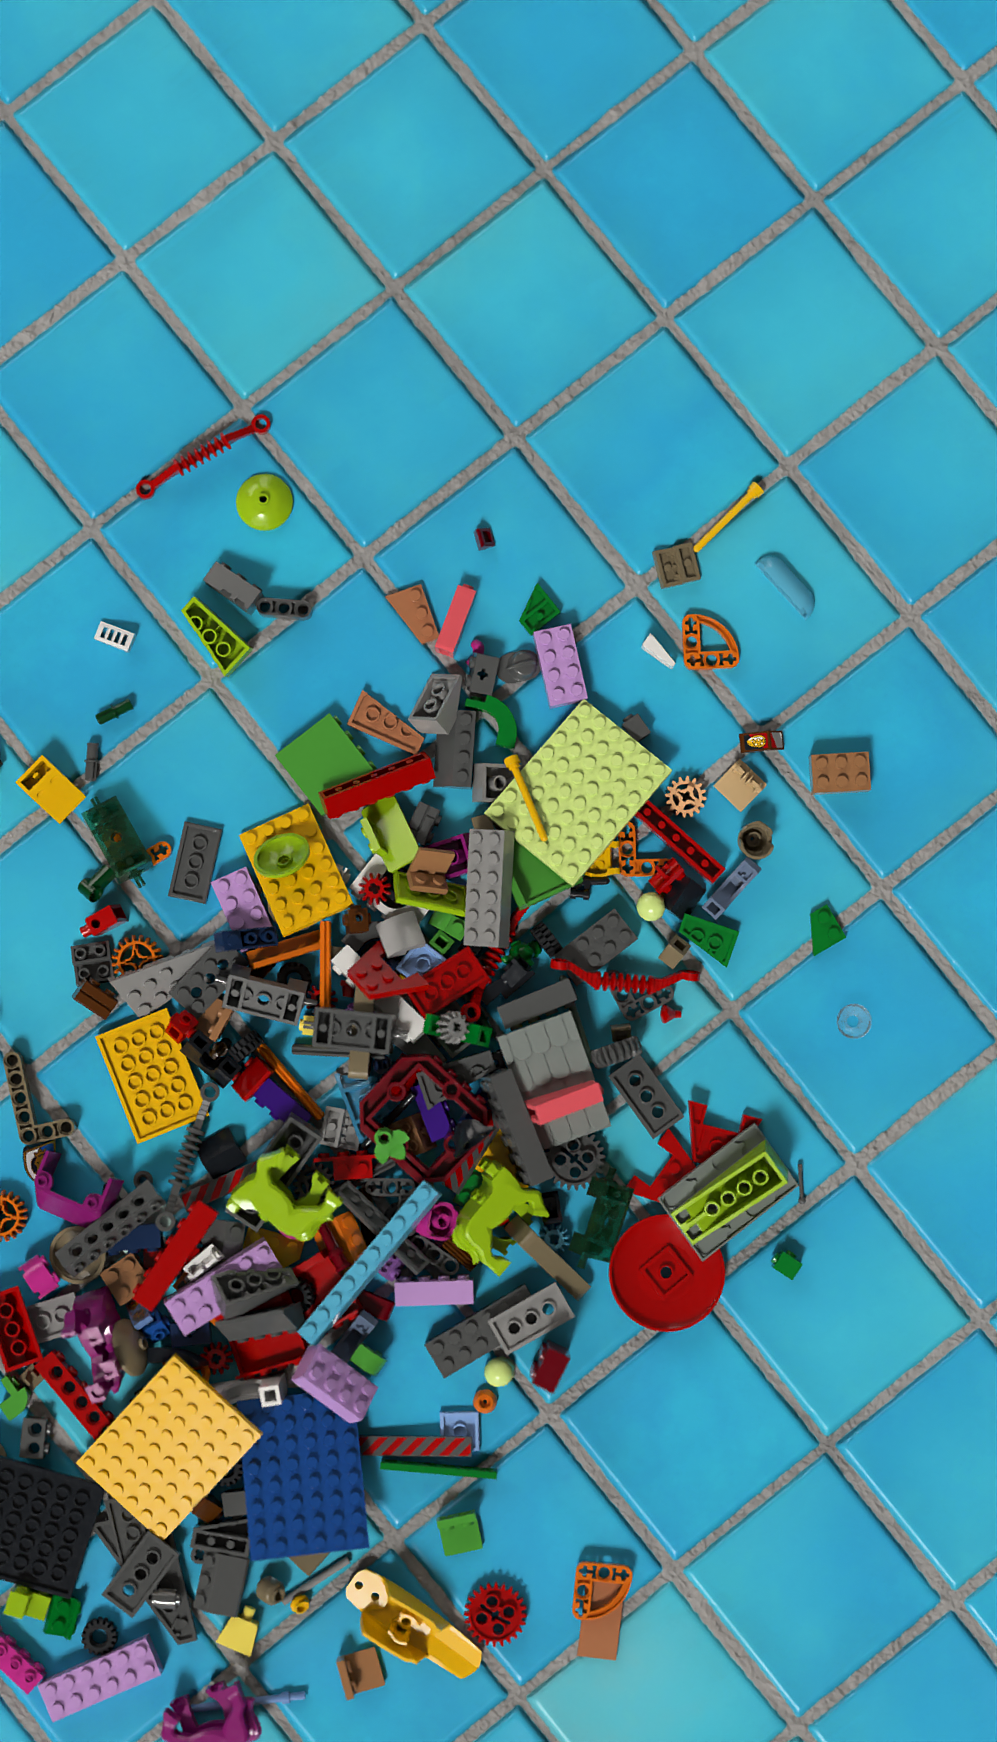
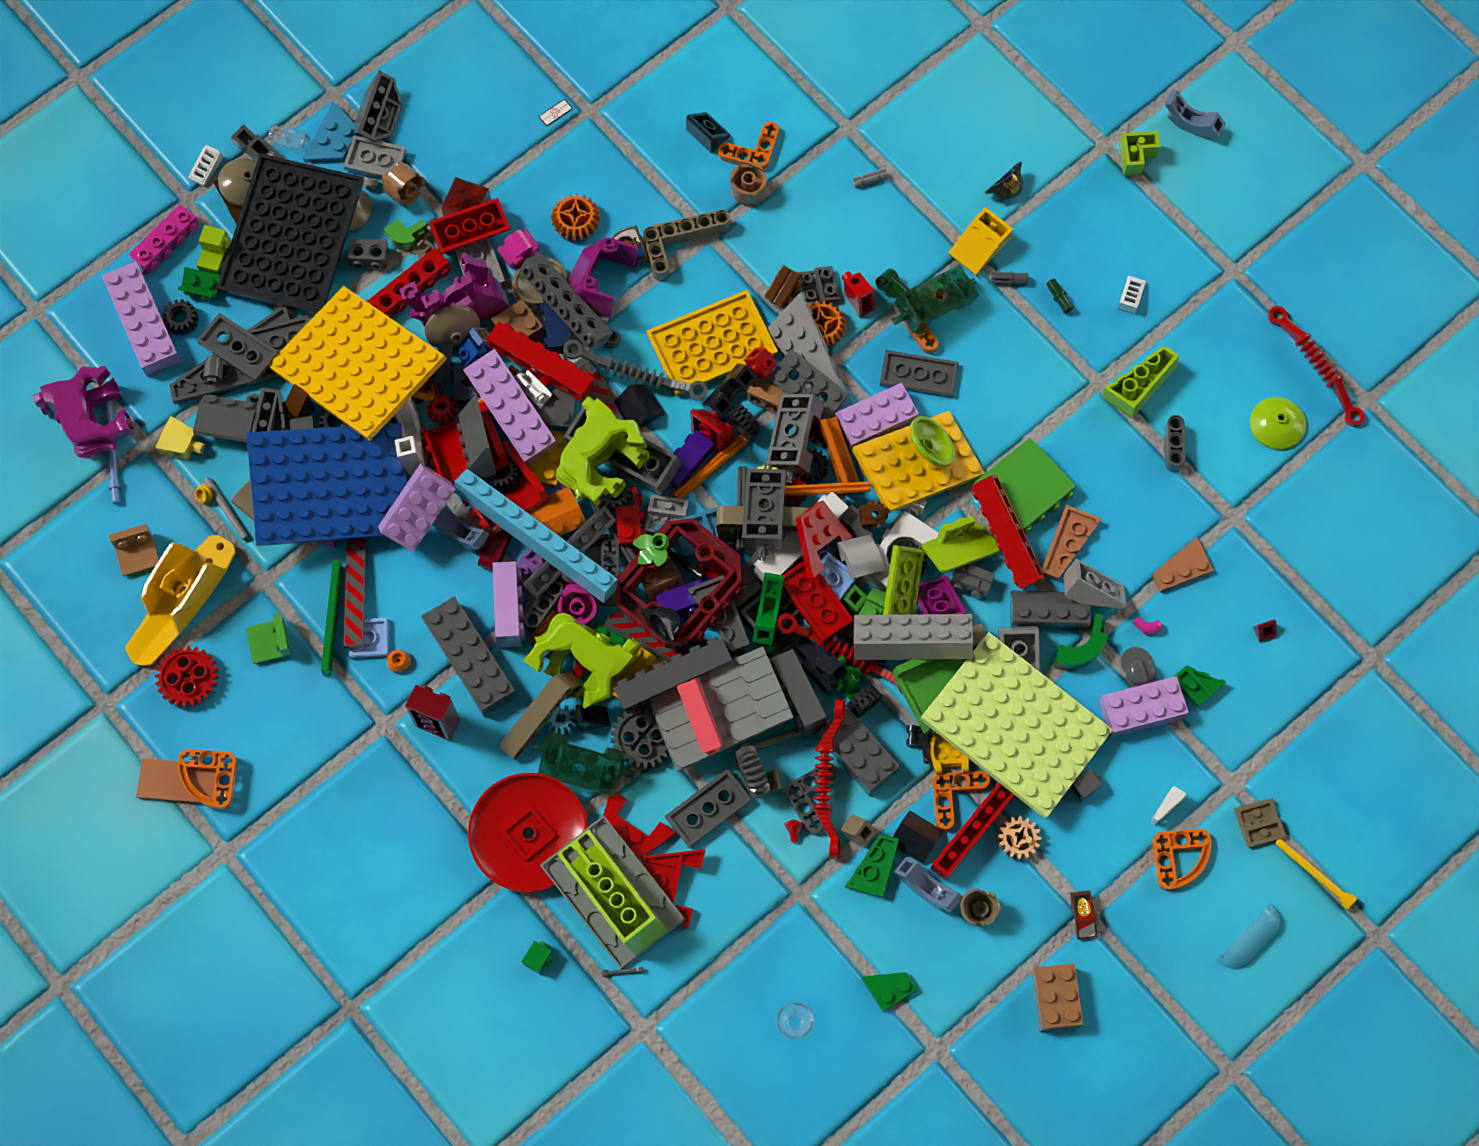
camera: 85 degrees right, 15 degrees down
(220, 1048) = (740, 397): dark brown axle -> none
(233, 587) = (1191, 395): dark grey wedge -> none
(243, 1291) = (507, 421): dark grey wedge -> none
(245, 939) = (848, 413): dark blue slope -> none
(270, 1590) = (217, 465): dark tan head -> none
(336, 1252) = (545, 506): dark red pin -> none
(368, 1359) = (440, 543): bright green brick -> none
(377, 882) = (910, 526): red gear -> none
(429, 870) = (926, 581): medium nougat bracket -> none
(452, 1027) = (769, 607): light grey gear -> none
(455, 620) = (1179, 602): coral slope -> none
(485, 683) = (1137, 636): dark grey brick -> none
(499, 1371) = (427, 673): yellowish green hair -> none
(512, 762) = (1041, 657): yellow piece -> none
(543, 1324) = (485, 681): light grey plate -> none
(650, 906) = (903, 805): yellowish green hair -> none
(666, 875) = (937, 817): red hips -> none
(740, 785) = (1036, 895): tan hinge -> none

